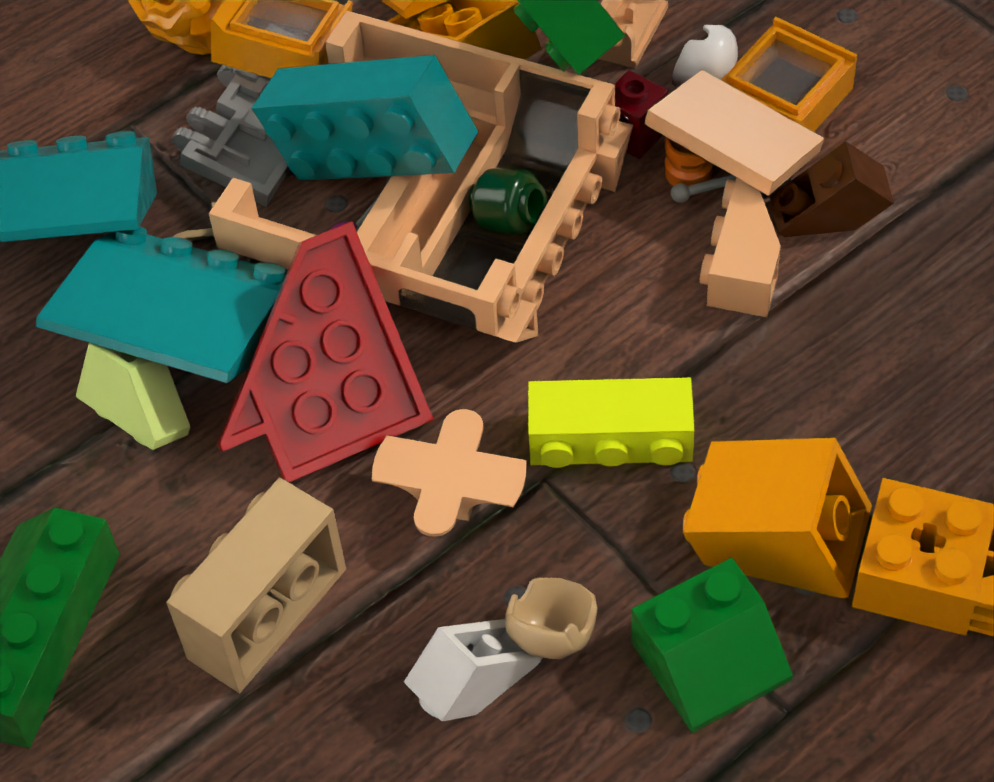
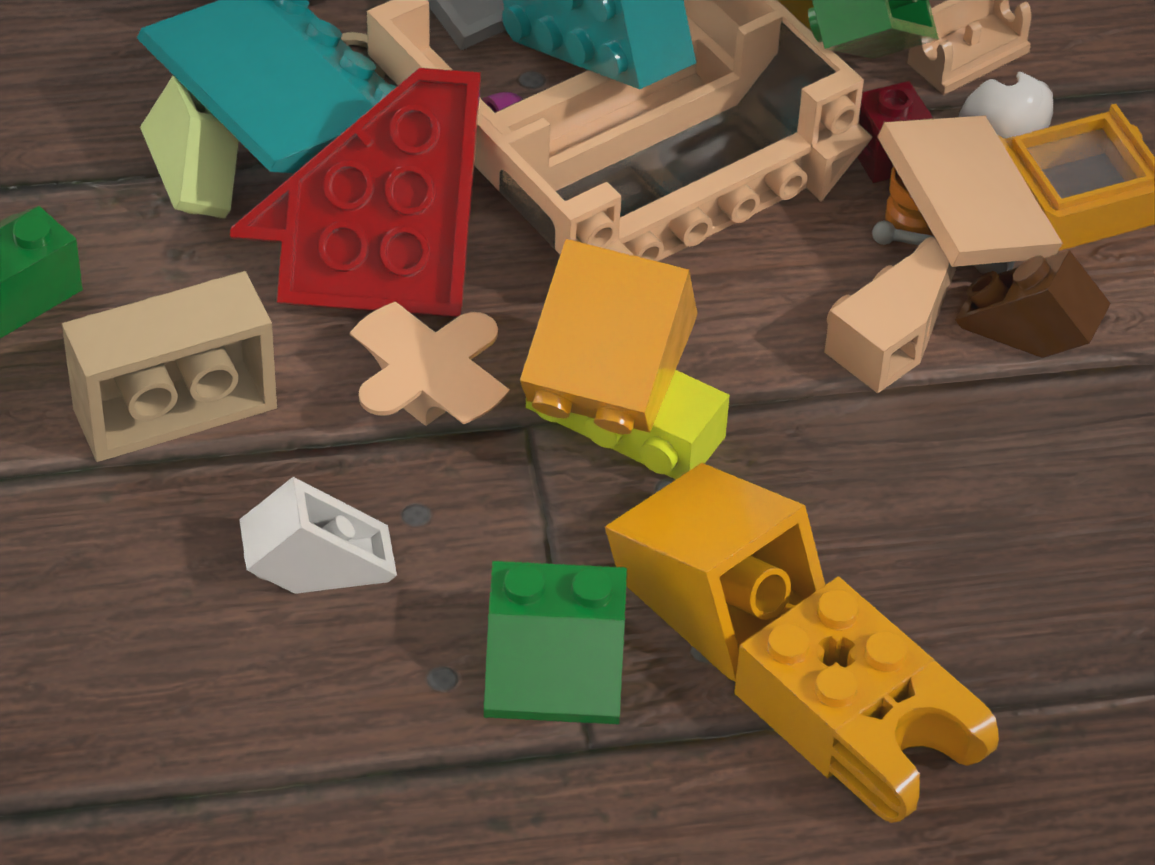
camera: 25 degrees right, 5 degrees down
(507, 201) = (683, 145): dark green head -> none
(551, 618) = (421, 542): tan hair -> none
(591, 383) = (609, 337): none -> light orange slope

